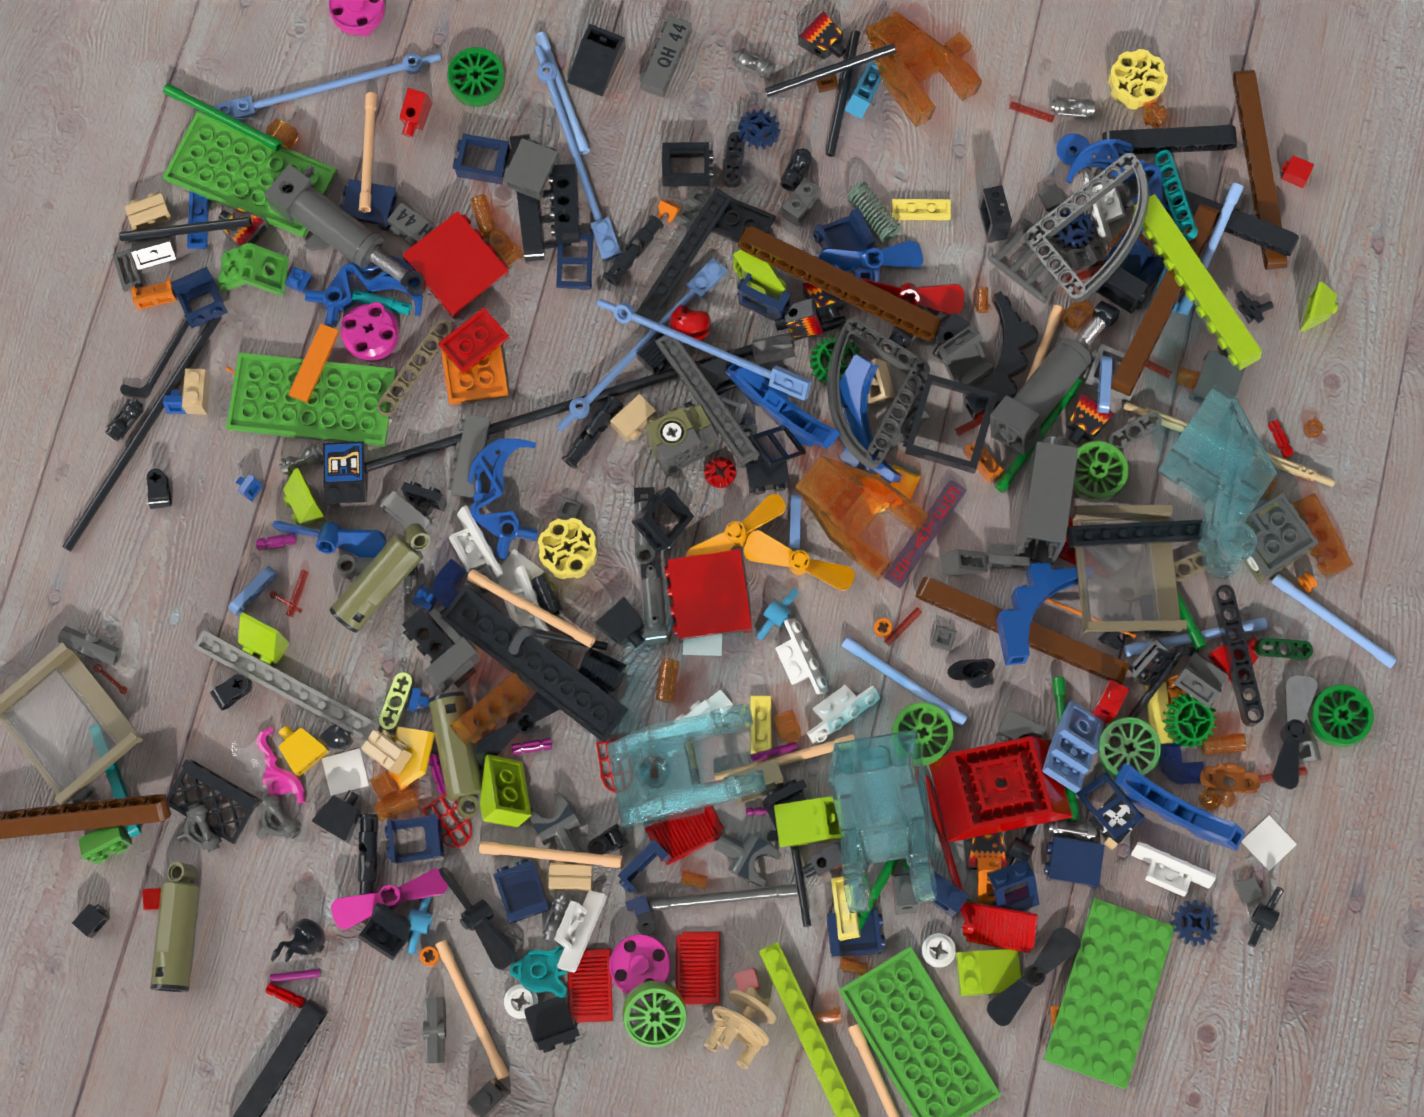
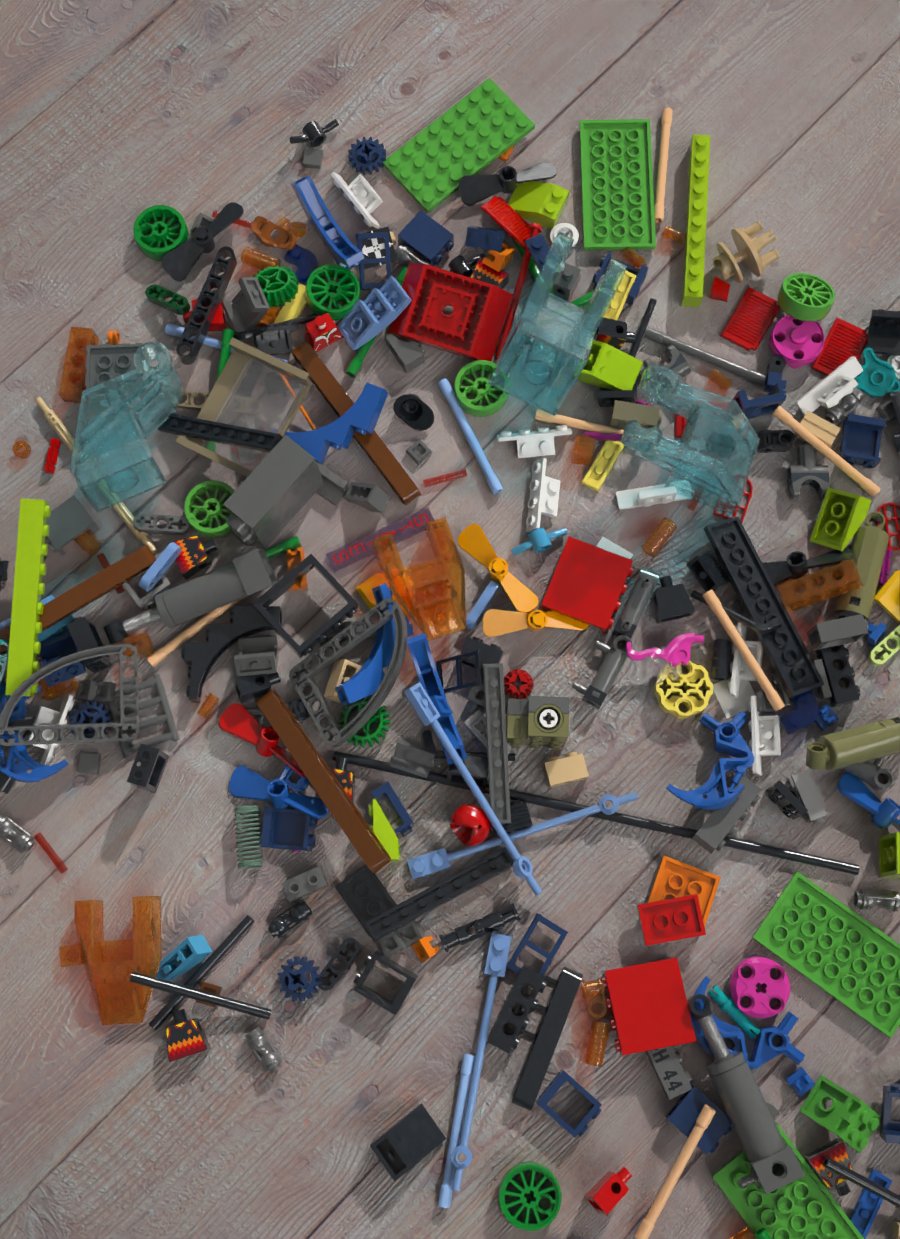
camera: 150 degrees left, 0 degrees up
(314, 363) = (826, 984): orange tile -> none
(344, 473) = (847, 861): slope -> none
(412, 366) = (737, 931): dark tan beam -> none
(530, 168) = (531, 1059): dark grey panel -> none
(532, 746) = (793, 546): magenta axle -> none
(569, 509) = (662, 724): dark grey tile -> none
(598, 424) = (596, 784): black piece -> none
(599, 555) = (661, 663): none -> piece
(651, 530) = (598, 674): black window -> none
(666, 56) = (338, 1107): dark grey brick -> none
(801, 319) = (367, 765): black torso -> none
(888, 629) = (457, 482): orange bush -> none
(921, 209) = (205, 818): light yellow tile -> none
(969, 425) = (289, 606): clear red piece -> none
(1070, 142) = (32, 791): blue piece -> none
(1086, 274) = (100, 677): clear red piece -> none
(1269, 842) = (275, 182): white sticker -> none
(1378, 652) = (112, 295): light blue piece -> none

